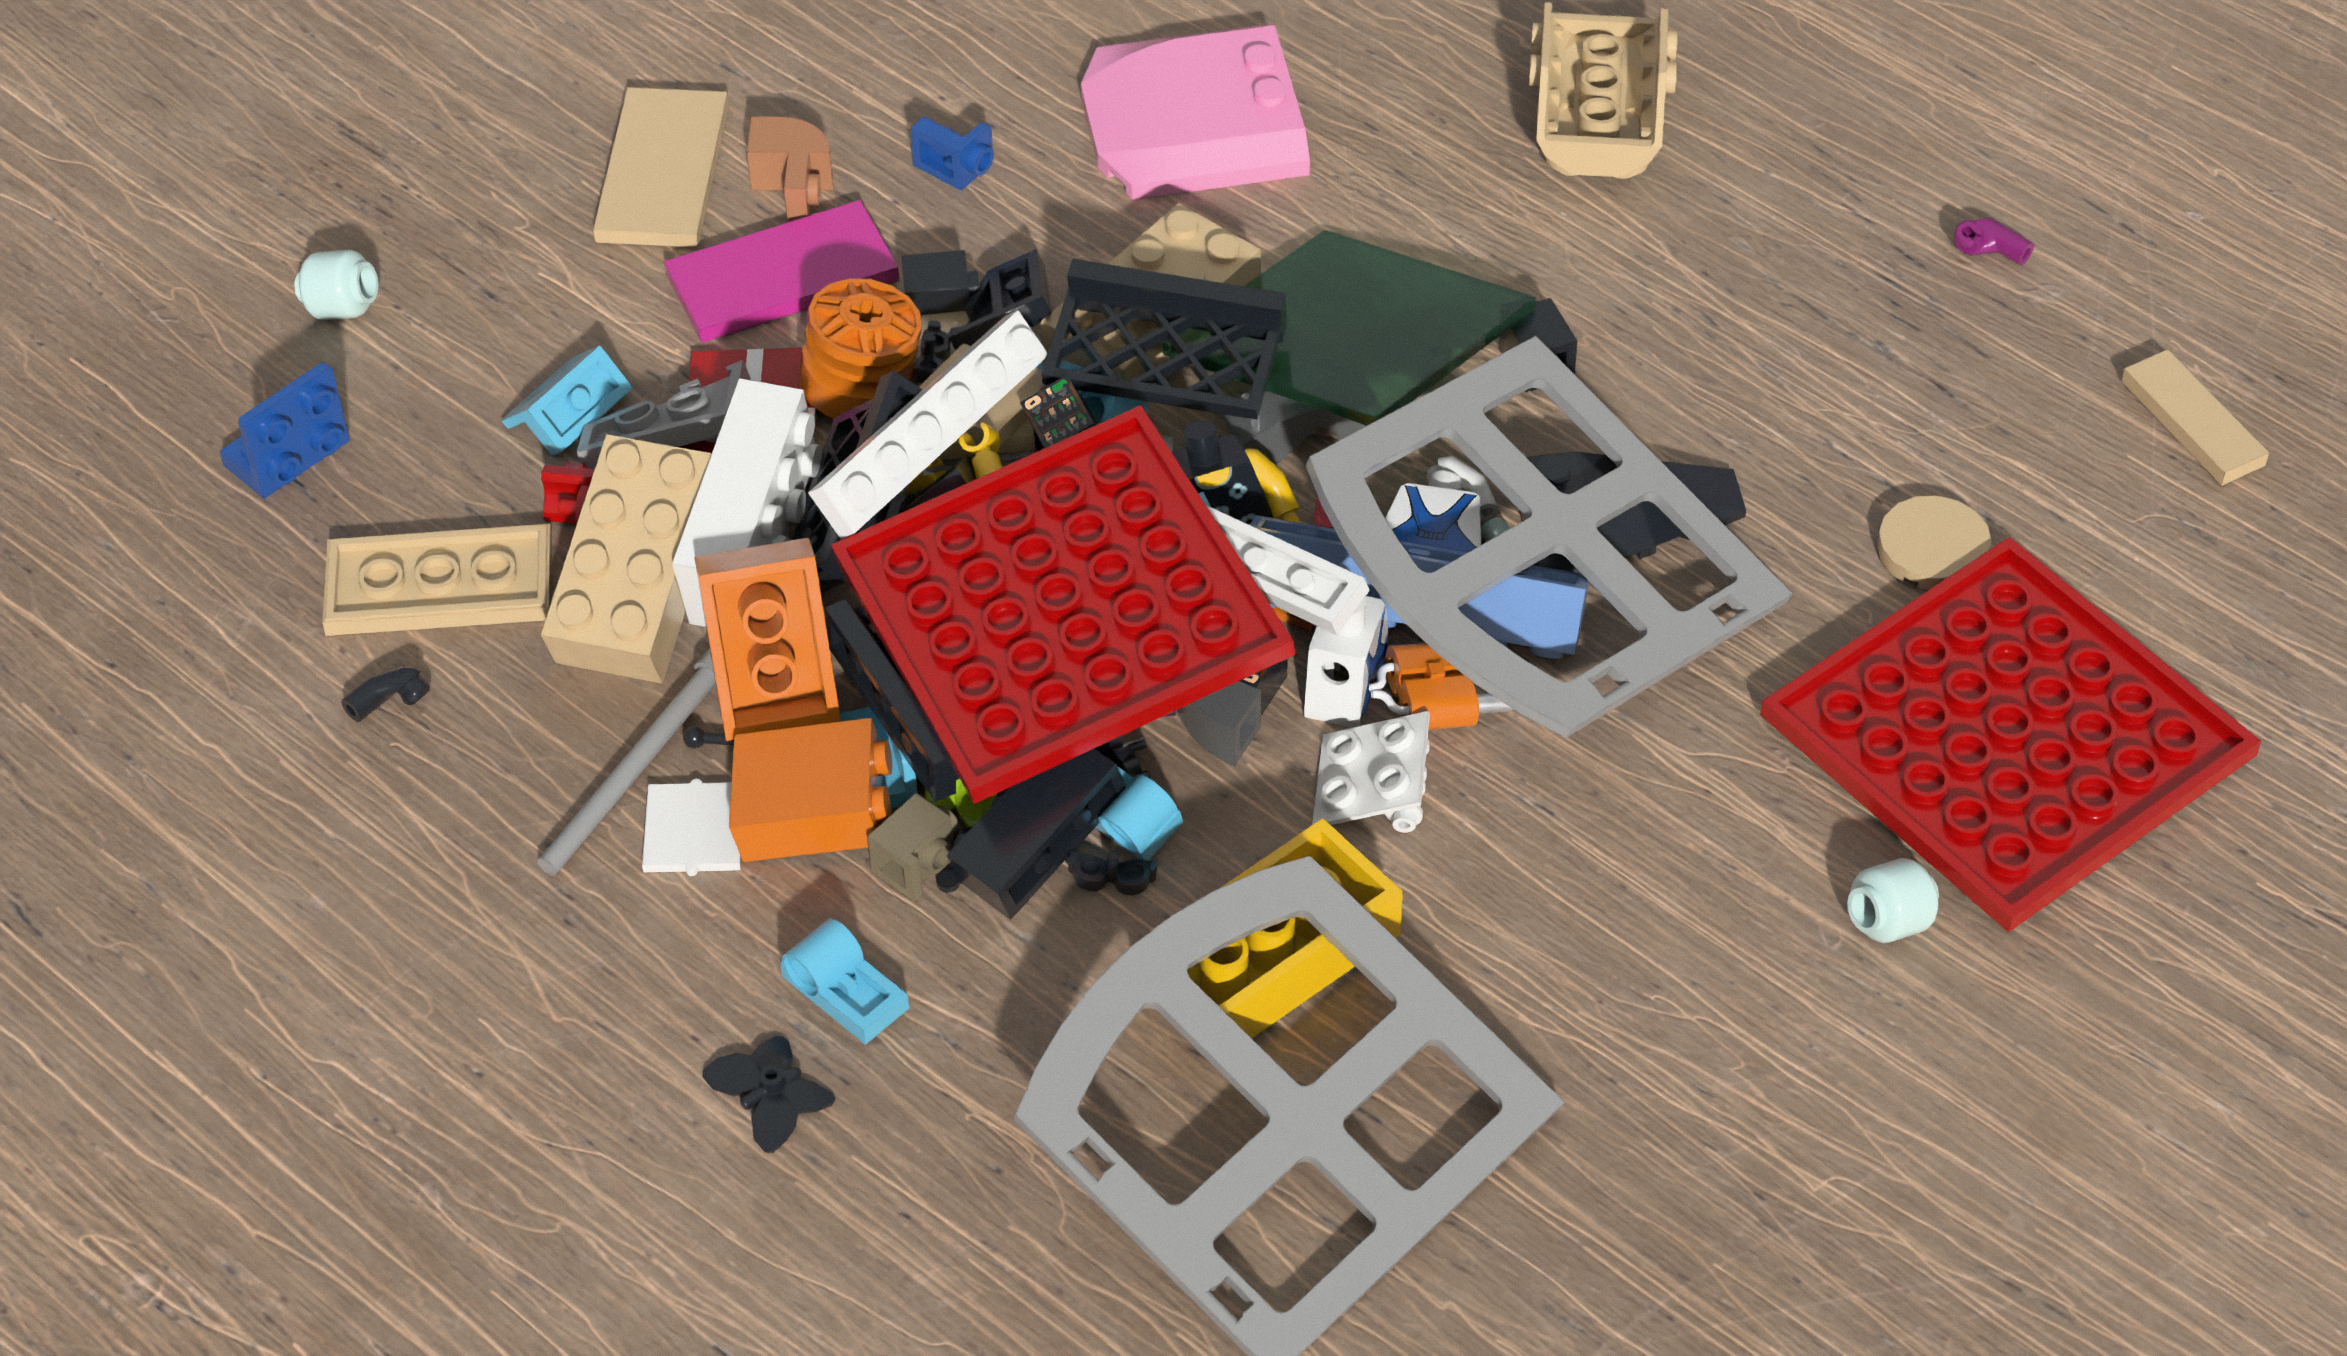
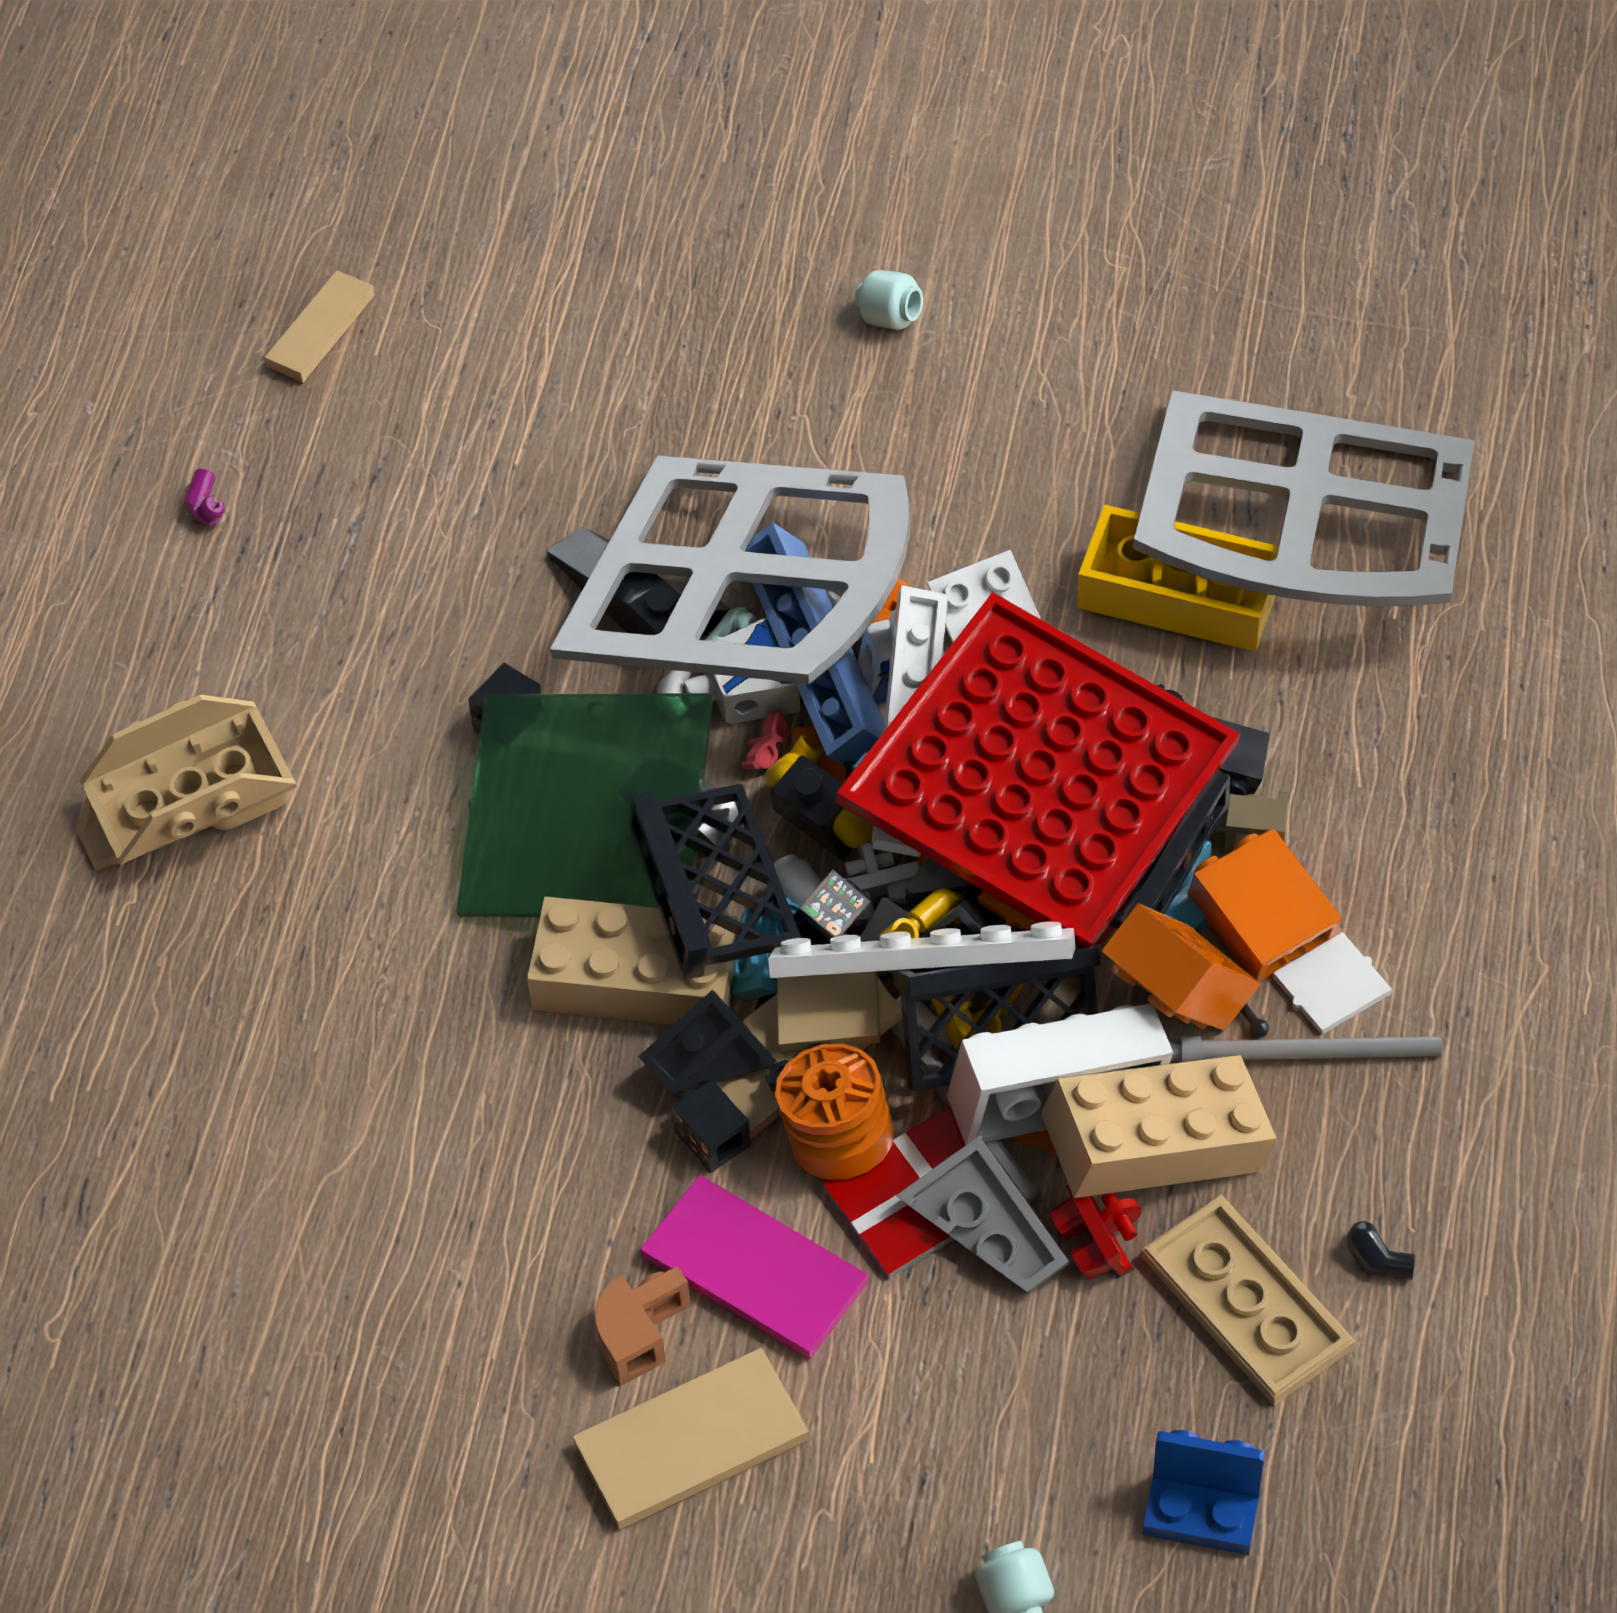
camera: 120 degrees left, 5 degrees up
(570, 399) = (1008, 1329): medium azure panel -> none
(773, 1085) = (1497, 805): black piece -> none
(835, 977) = (1394, 802): medium azure plate -> none
(949, 155) = (545, 1208): blue bracket -> none
(1195, 112) = (366, 1075): bright pink wedge -> none
(1931, 539) = (543, 413): tan tile -> none
(2009, 732) = (693, 308): red plate -> none

